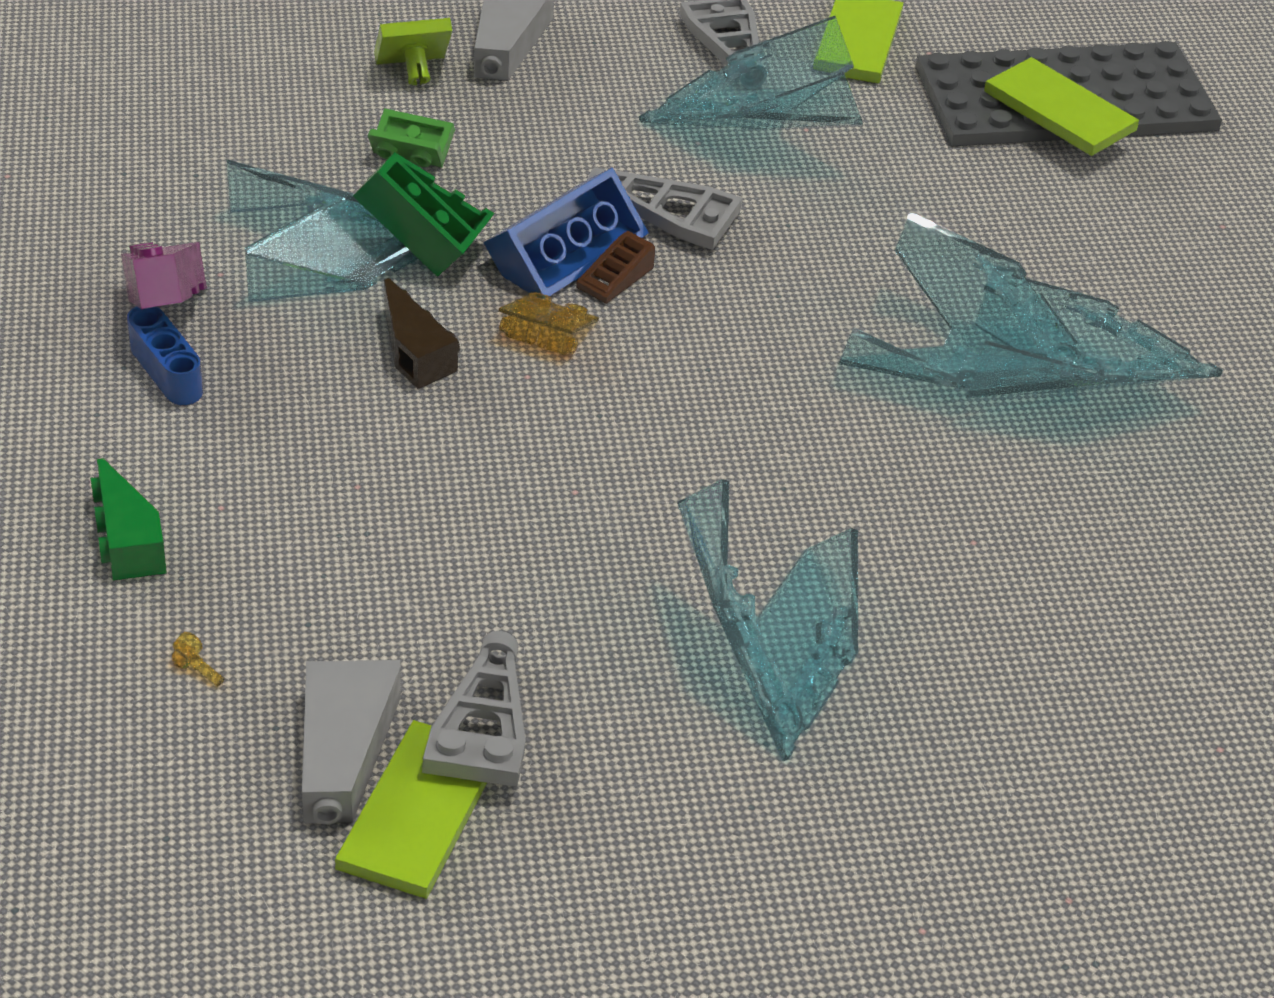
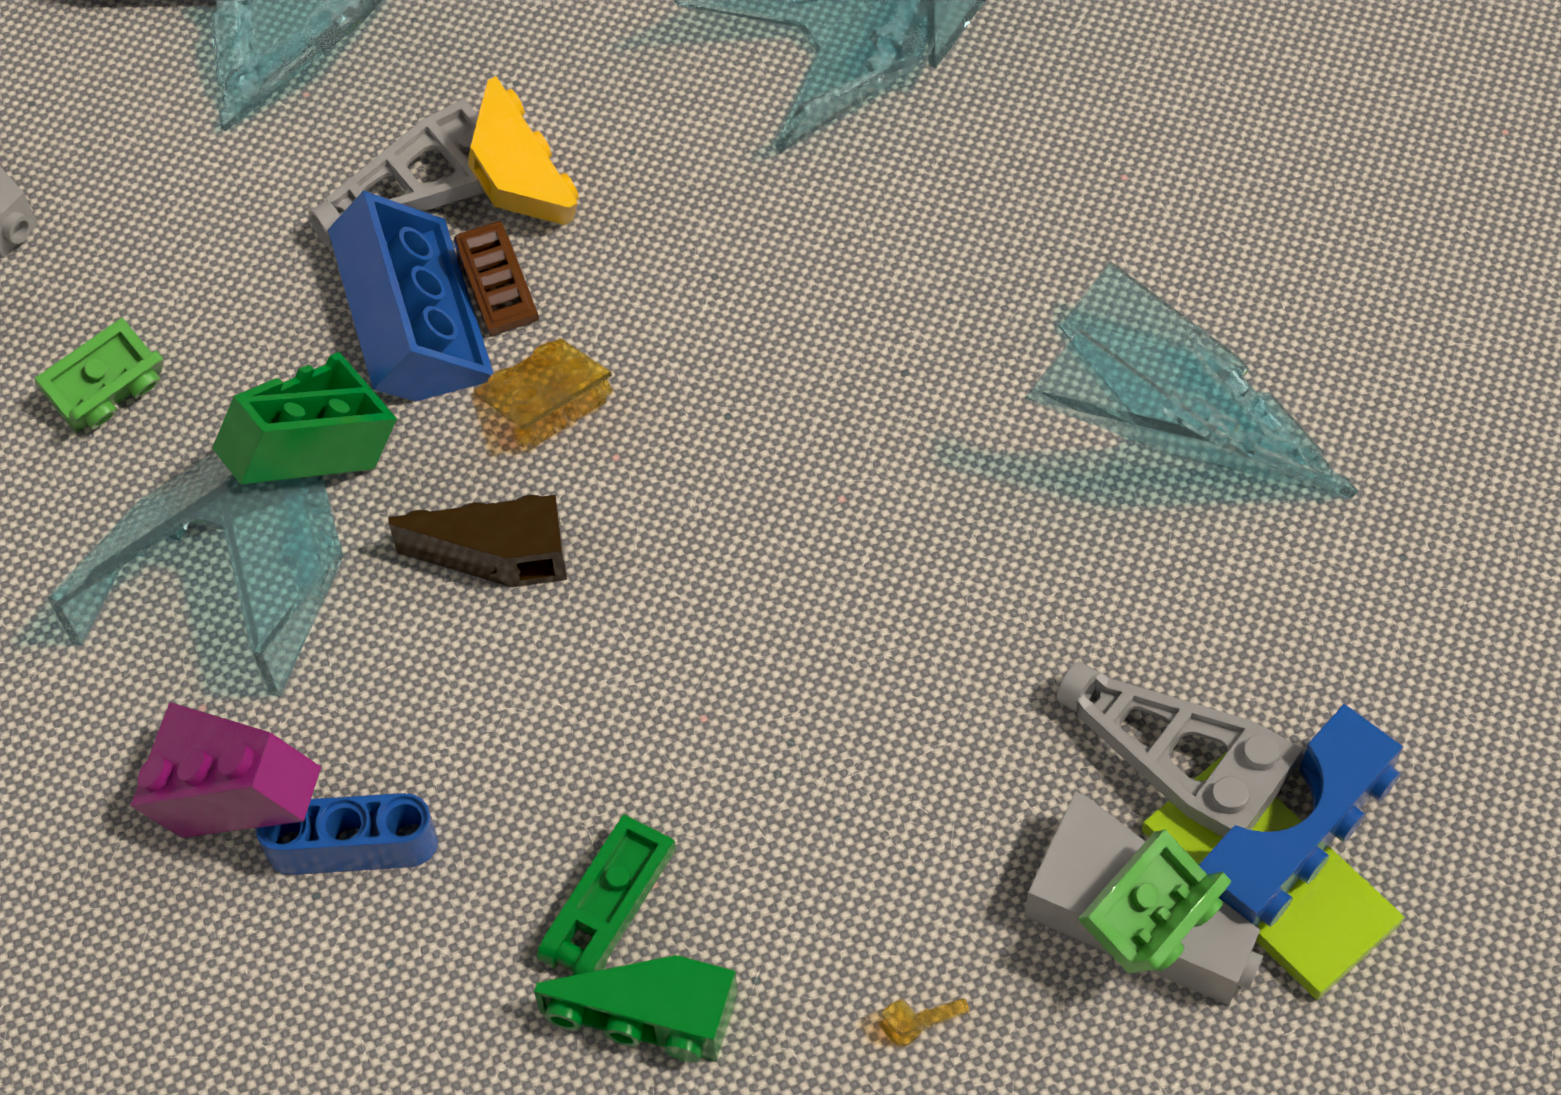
camera: 55 degrees left, 15 degrees up
(193, 481) = (607, 897): none -> green plate
(325, 712) = (1153, 905): none -> bright green bracket
(510, 803) = (1343, 770): none -> blue arch
(704, 226) = (515, 161): none -> yellow slope

